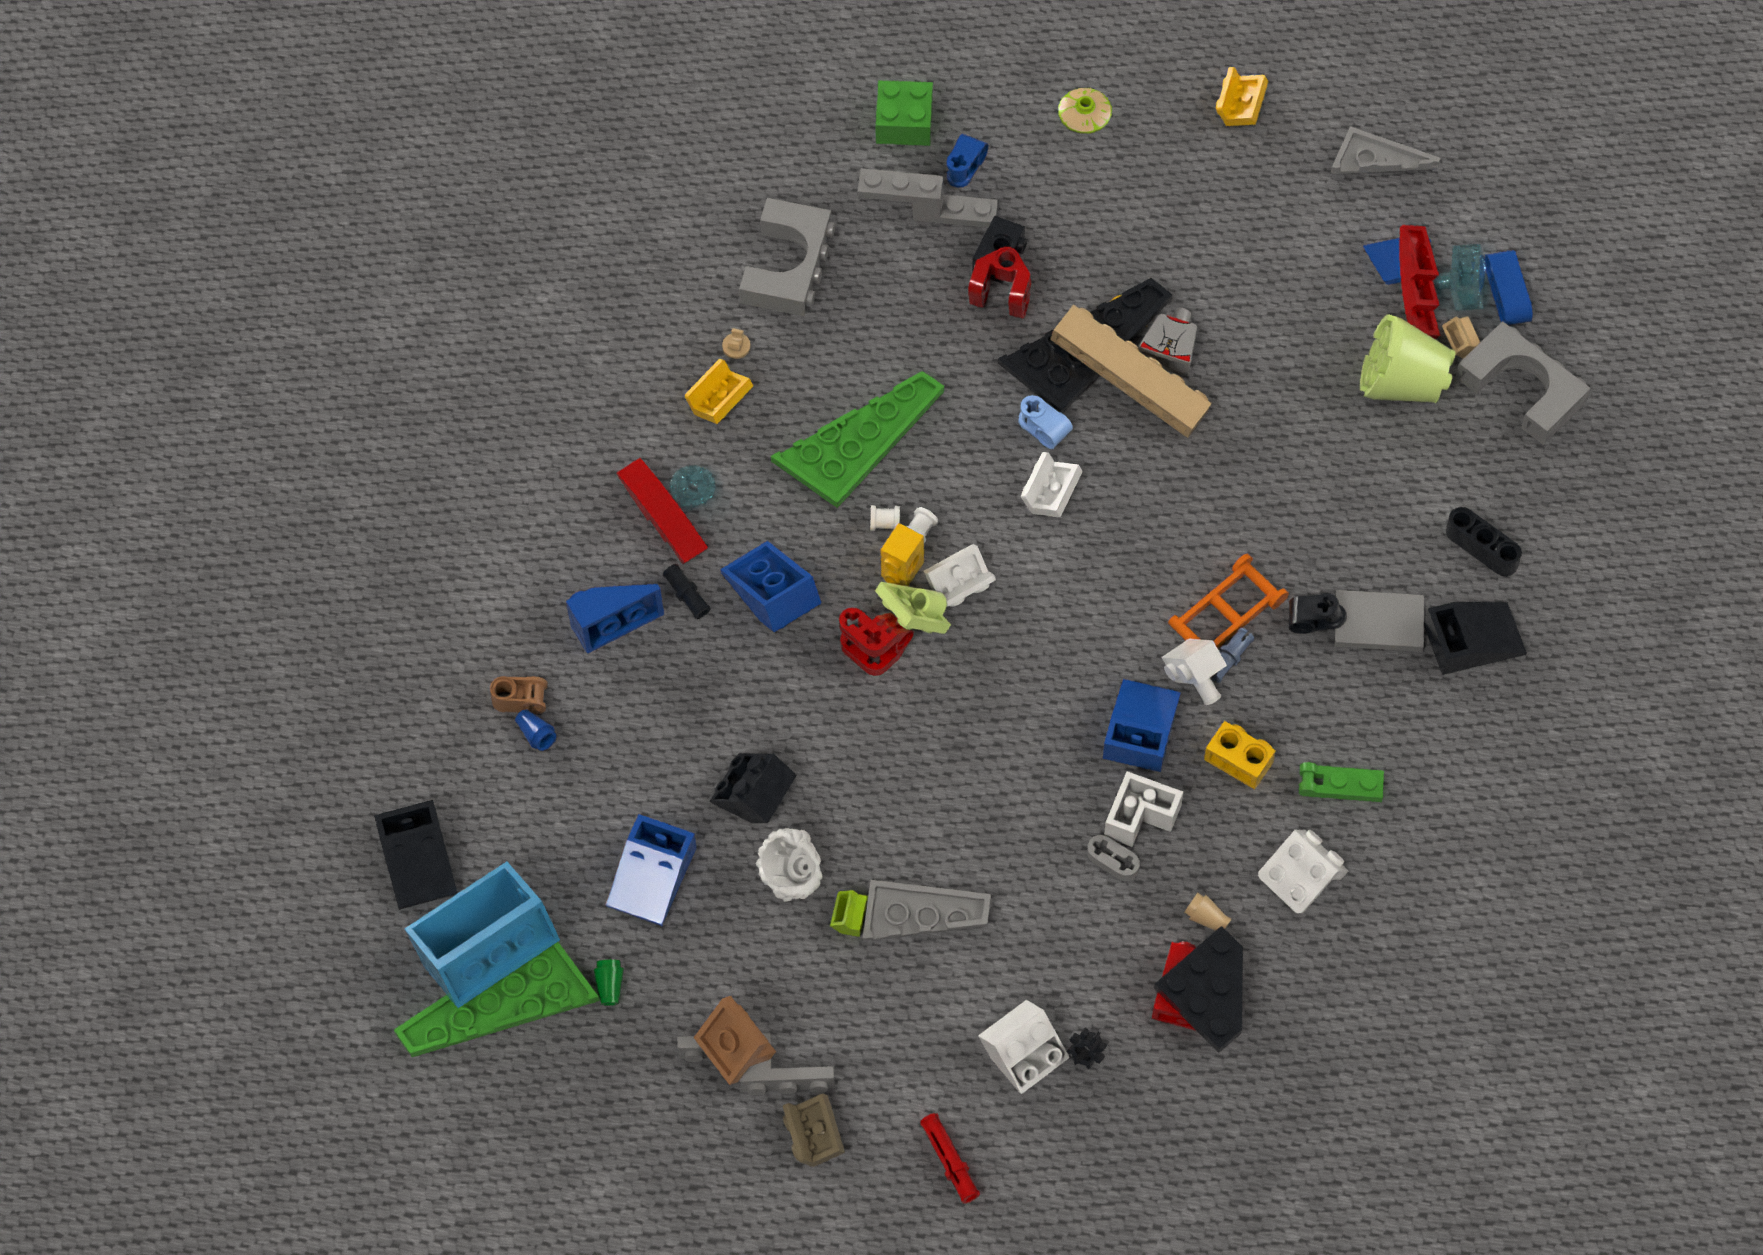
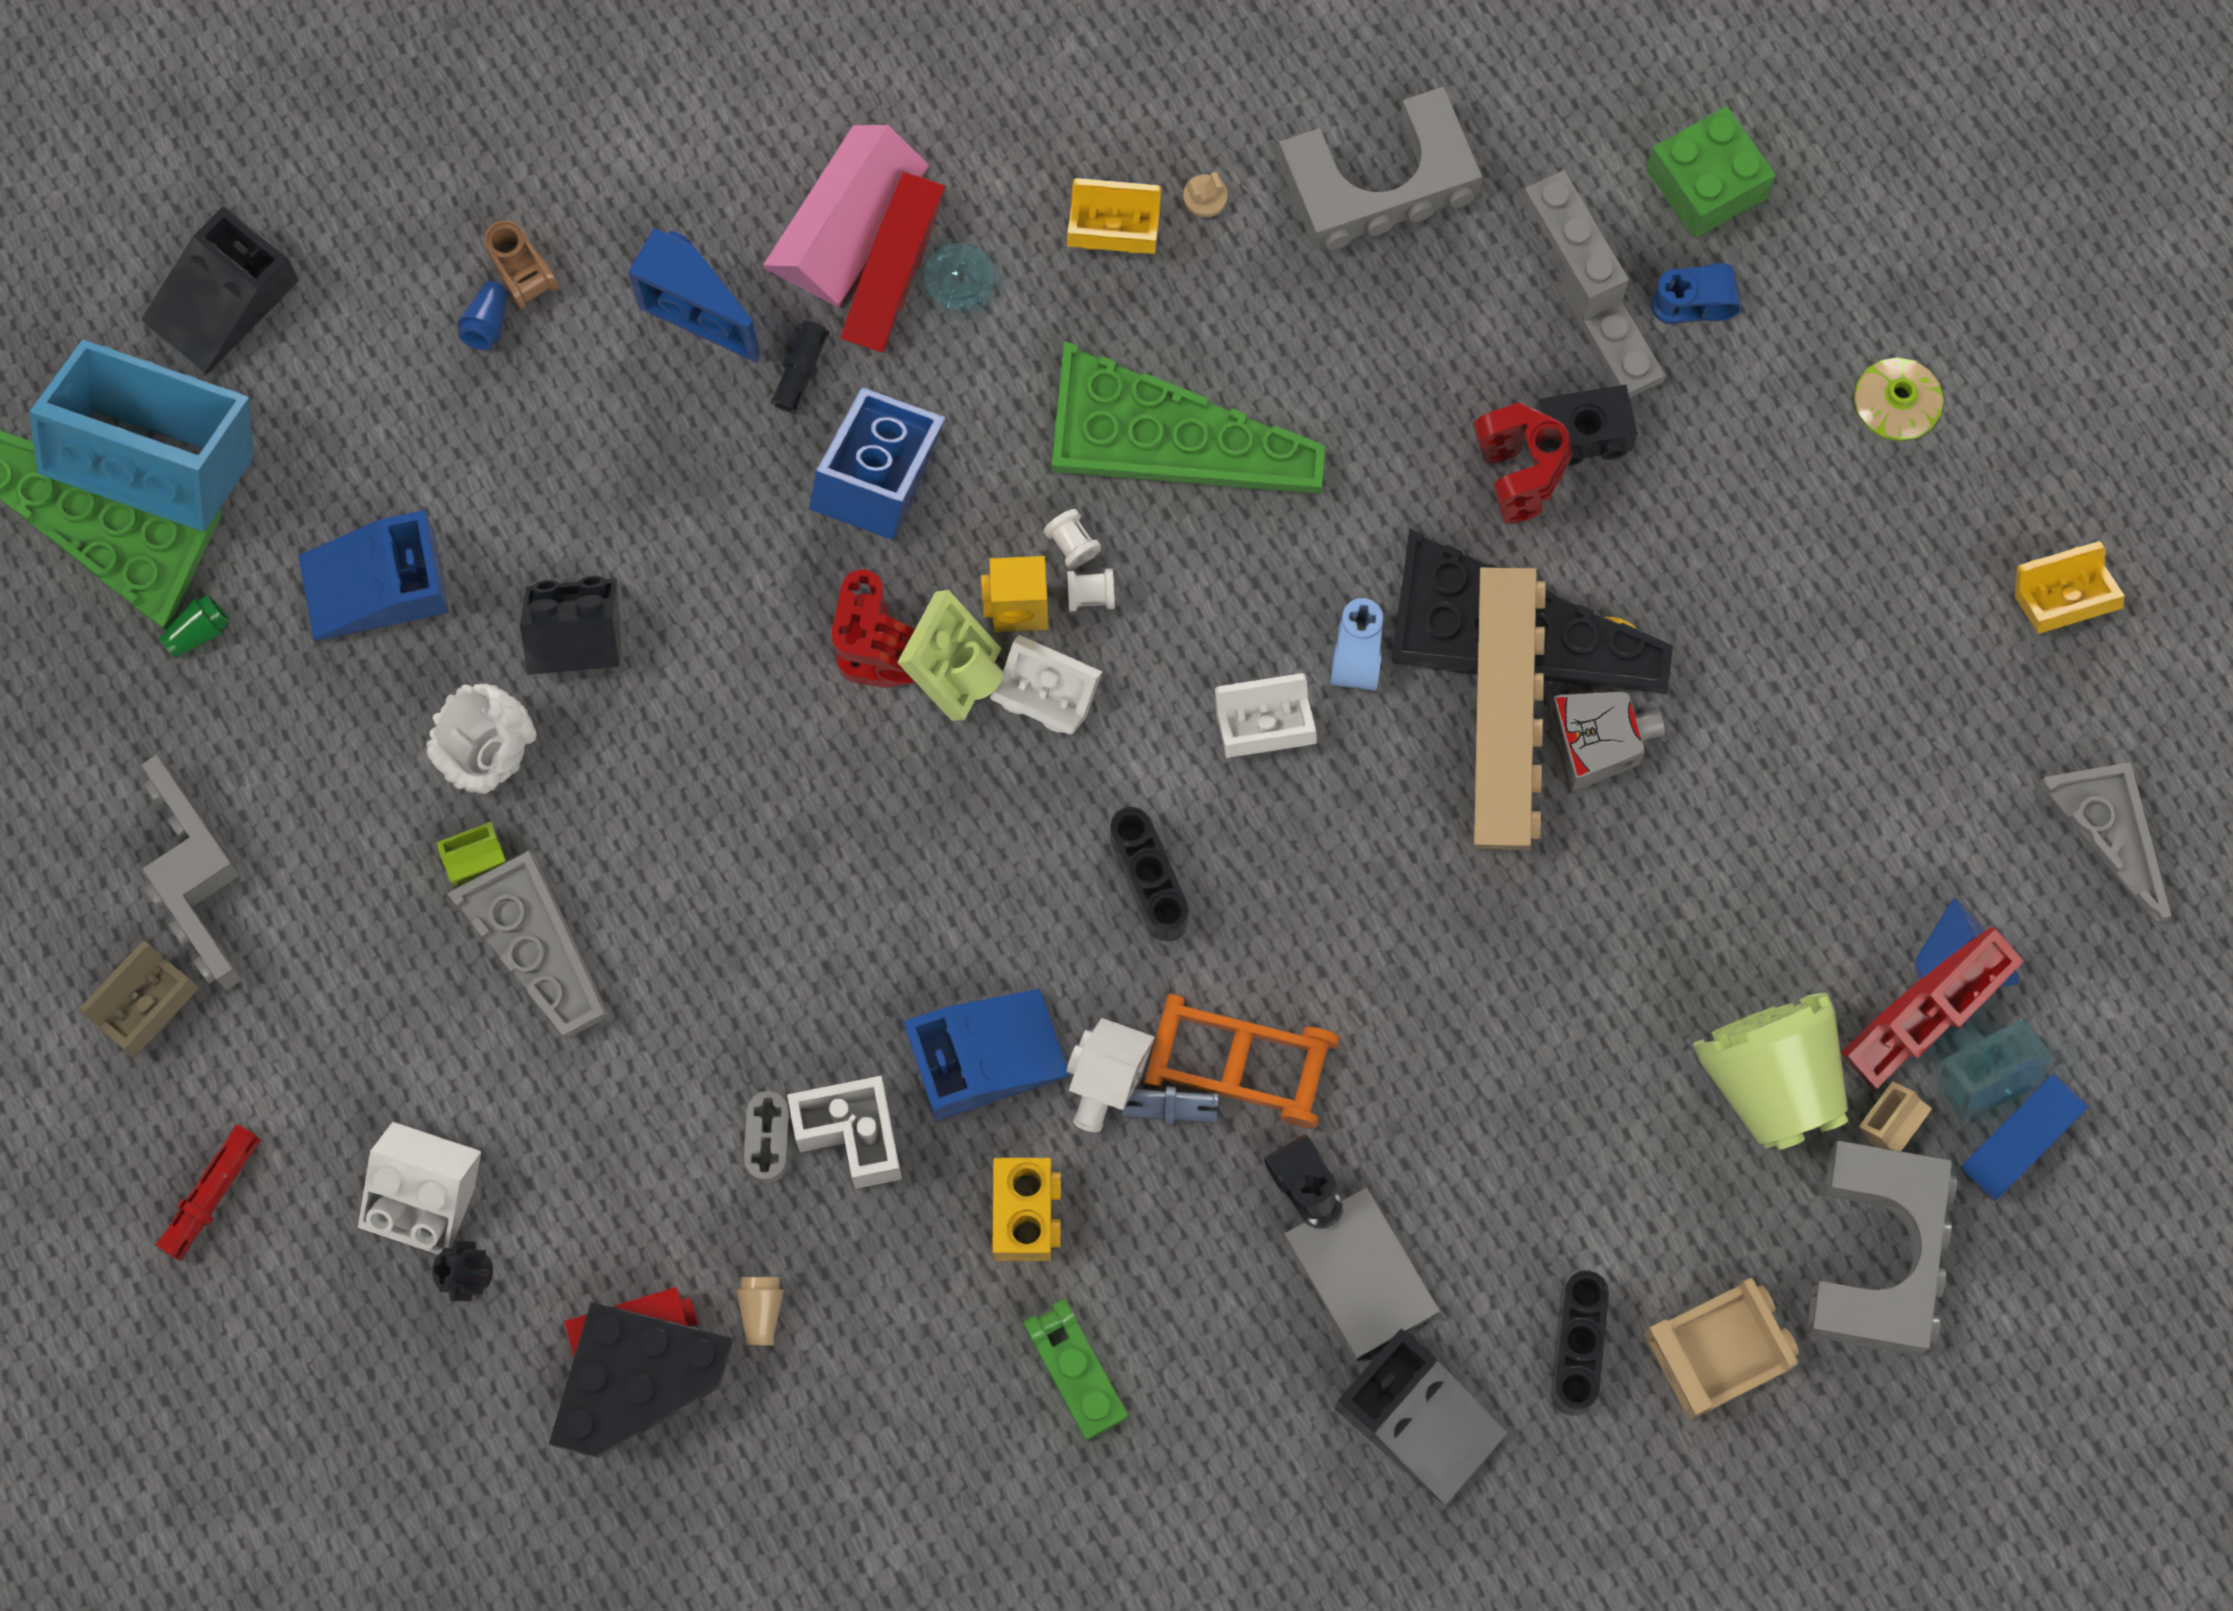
camera: 55 degrees right, 10 degrees up
(611, 519) = (841, 216): none -> bright pink slope
(733, 1040) = (182, 826): medium nougat bracket -> none
(1087, 580) = (1143, 853): none -> black beam
(1301, 869) = (907, 1396): white bracket -> none
(1527, 481) = (1722, 1348): none -> tan panel

